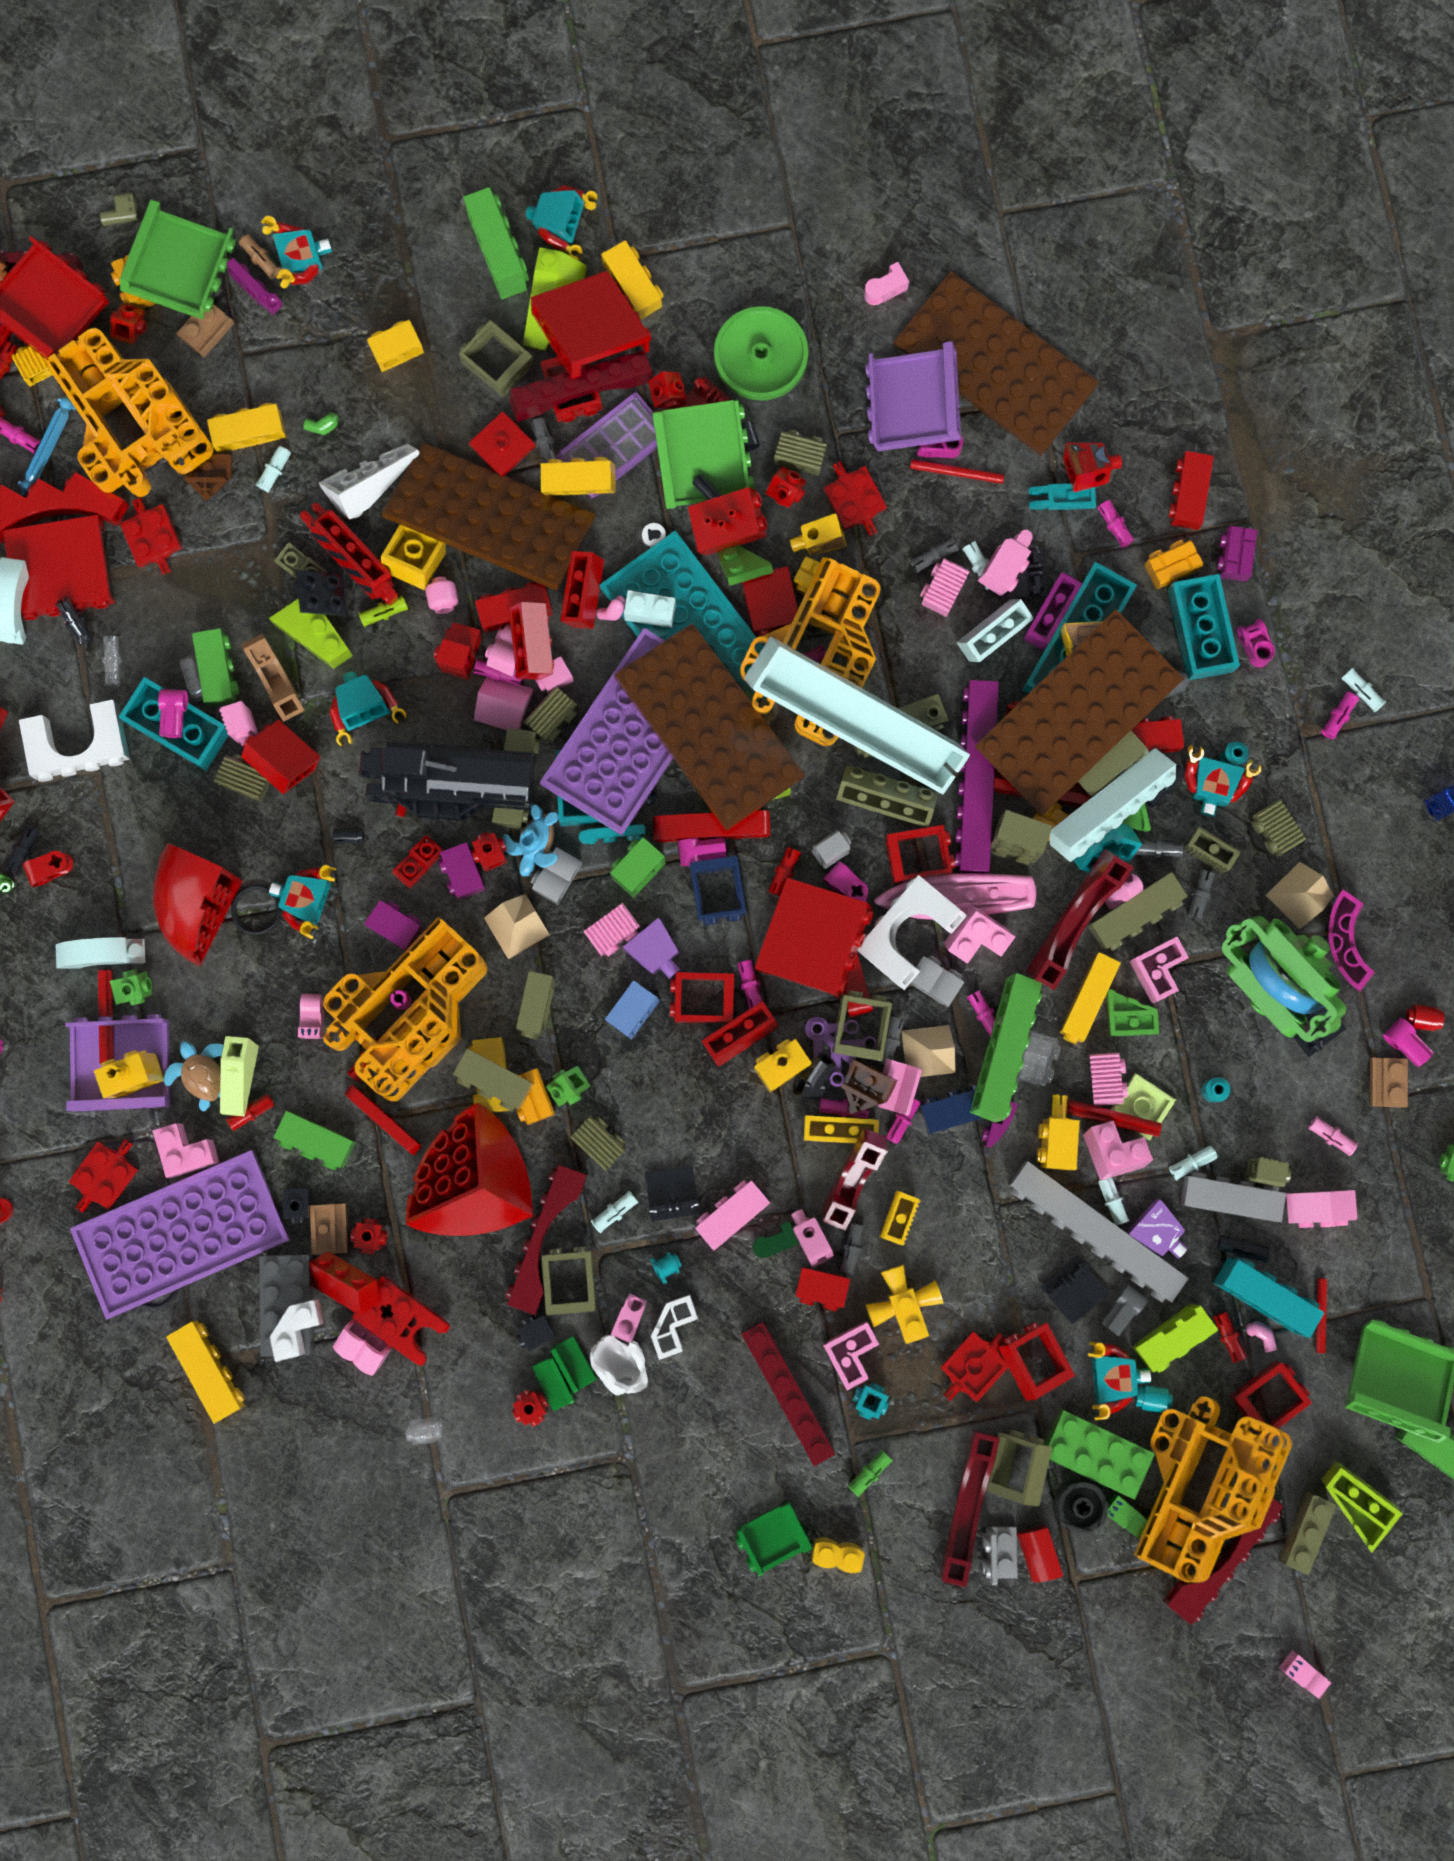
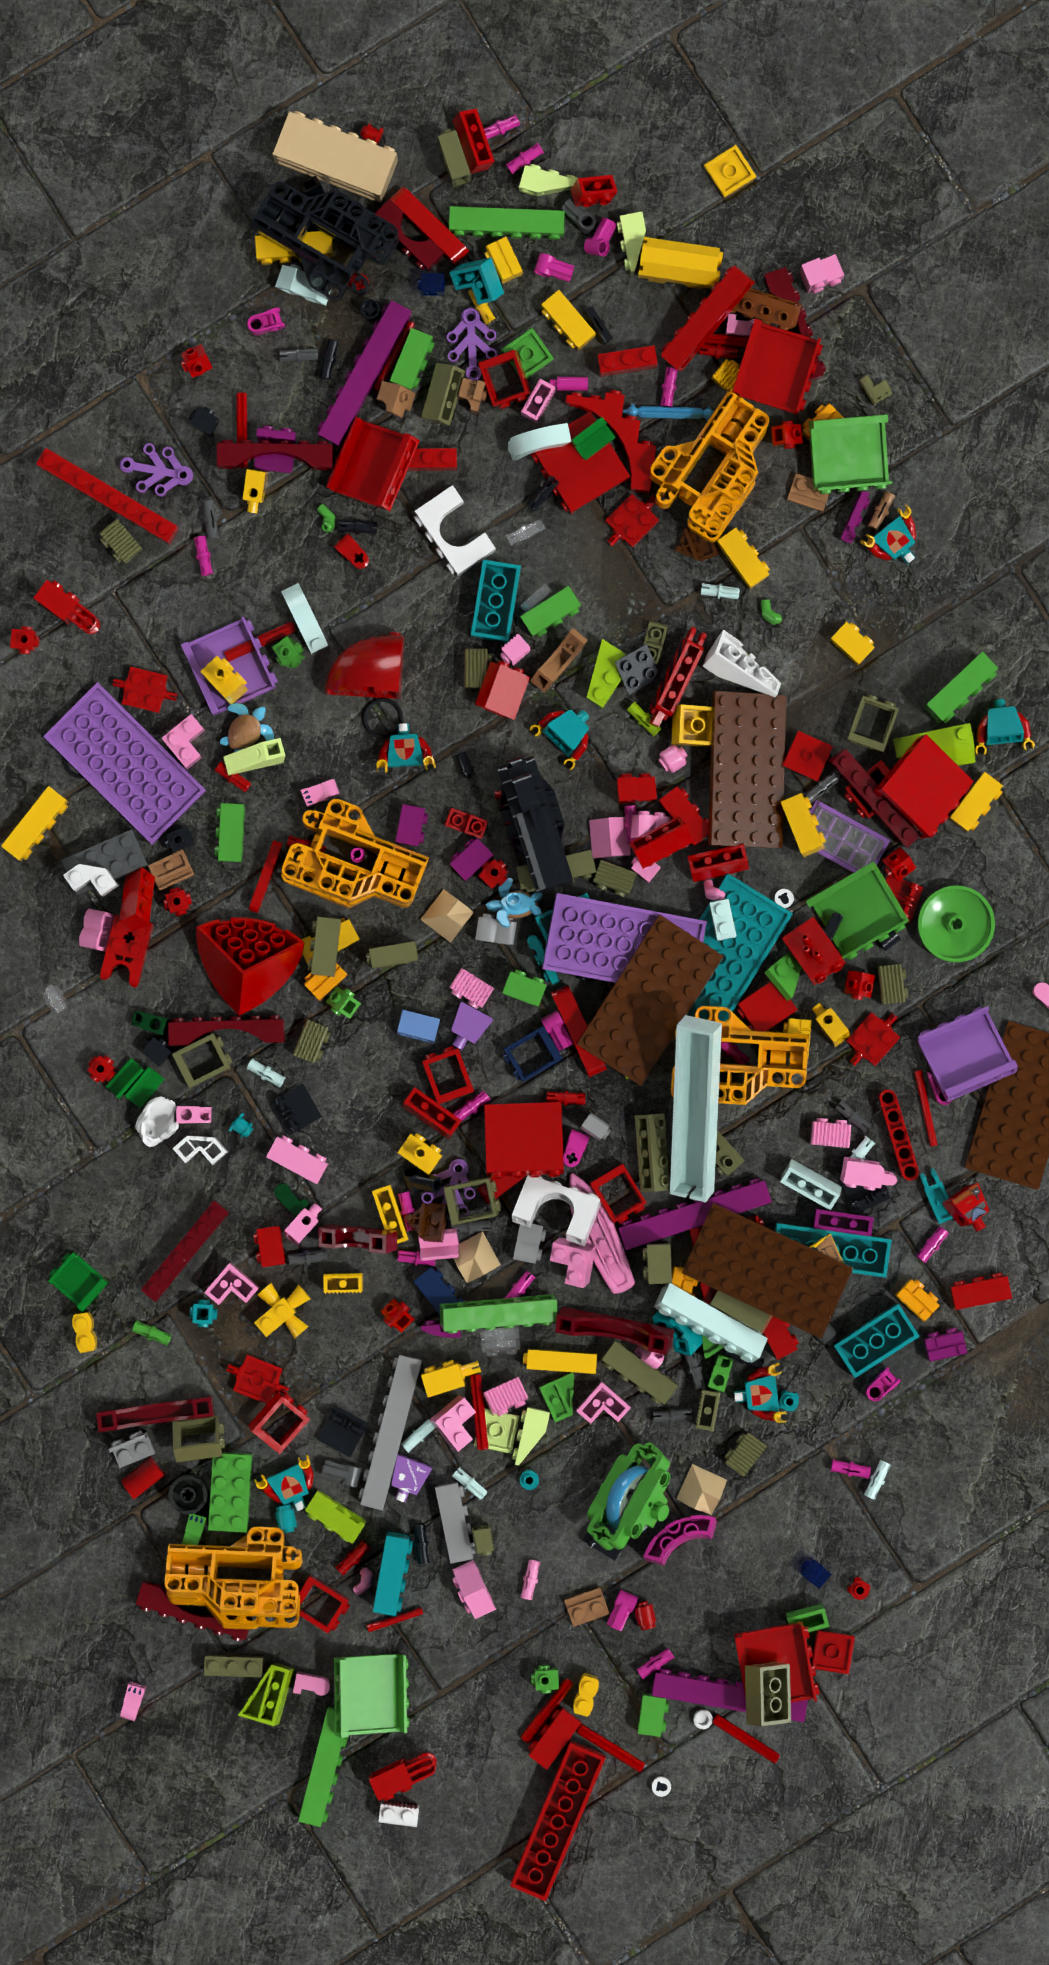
camera: 70 degrees right, 5 degrees up
(34, 538) = (593, 439): none -> green panel
(172, 706) = (506, 597): dark pink piece -> none
(499, 1326) = (150, 1022): none -> dark green leg
(962, 1169) = (397, 1315): none -> red brick
(986, 506) = (905, 1141): none -> red beam
(1158, 1062) = (534, 1428): none -> yellowish green slope
(1174, 820) = (720, 1373): none -> bright green leg
(1361, 1447) = (311, 1682): none -> bright pink leg

